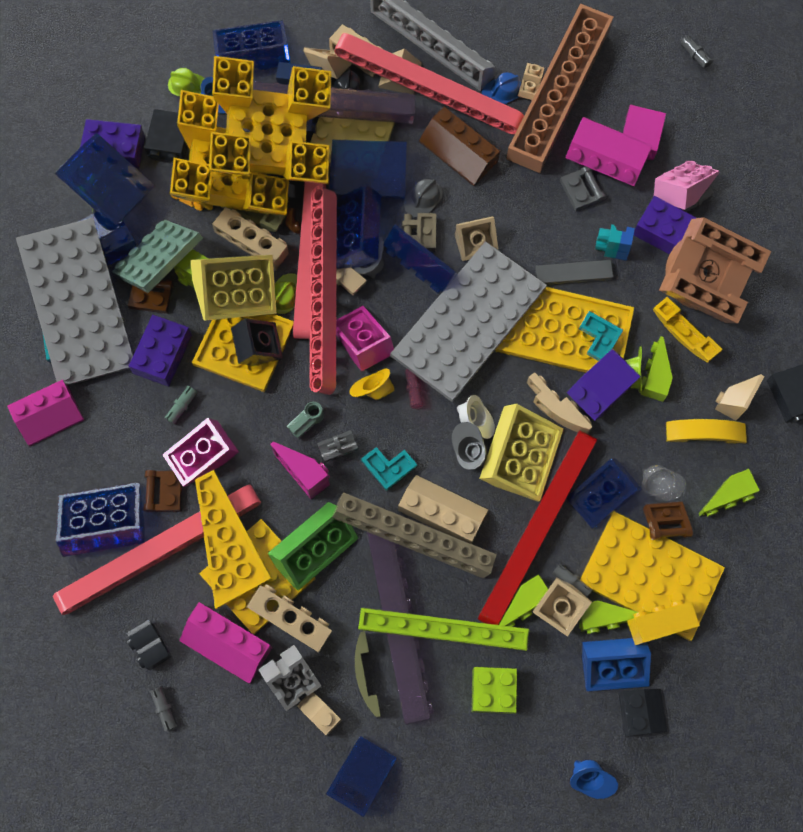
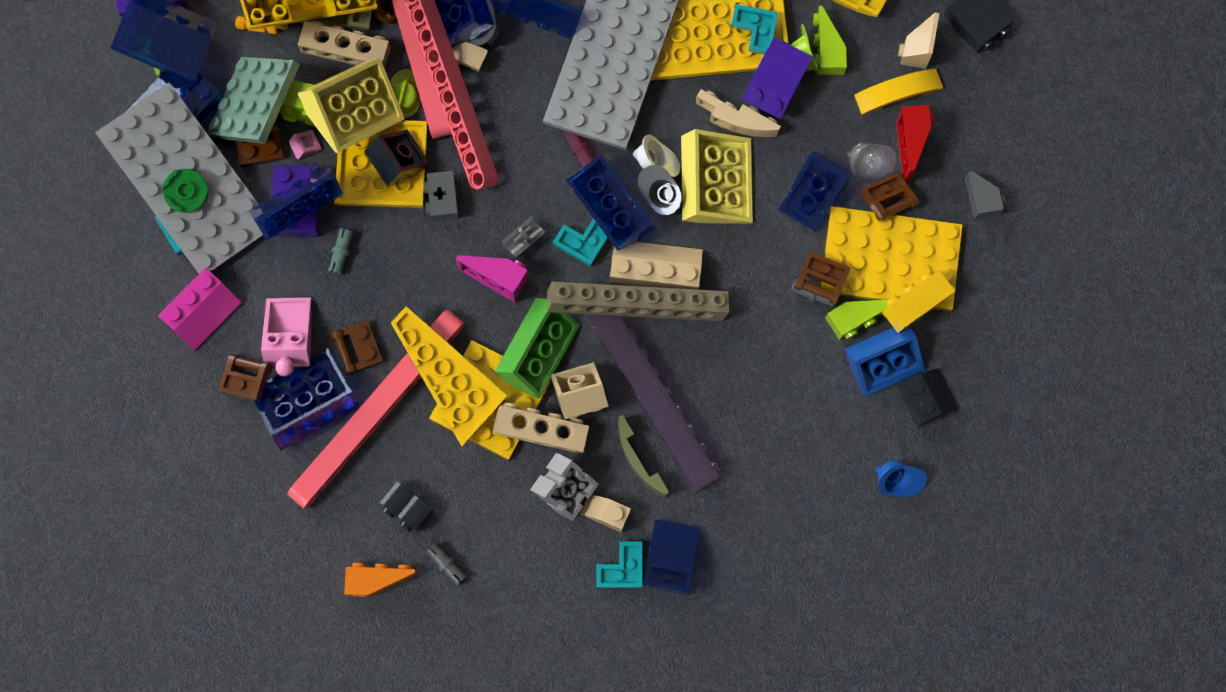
camera: 20 degrees left, 5 degrees up
(53, 488) = (242, 384): none -> reddish brown plate
(70, 310) = (185, 190): none -> green tile
(88, 699) = (367, 582): none -> orange slope
(108, 459) = (287, 333): none -> bright pink slope
(154, 351) = (296, 202): none -> clear blue slope
(187, 307) = (304, 144): none -> bright pink slope
(200, 452) = (381, 293): dark pink slope -> none
(224, 643) = (483, 477): dark pink slope -> none
(283, 398) = (441, 183): none -> dark grey brick
(304, 421) = (479, 223): sand green piece -> none
(318, 775) = (626, 573): none -> teal plate
(334, 596) = (579, 391): none -> tan brick
(363, 338) = (507, 113): dark pink slope -> none
(375, 385) = (537, 161): yellow piece -> none
(422, 443) = (610, 203): none -> clear blue slope
(443, 629) = (701, 384): lime tile -> none
(494, 690) = (772, 427): lime brick -> none
(524, 601) = (774, 324): lime slope -> none
(537, 529) = (760, 251): red beam -> none
(562, 606) = (812, 320): tan slope -> none
(588, 566) = (826, 272): none -> reddish brown plate
(707, 470) = (913, 128): none -> red slope
(734, 489) = (947, 140): lime slope -> none
(752, 549) = (983, 197): none -> dark grey slope

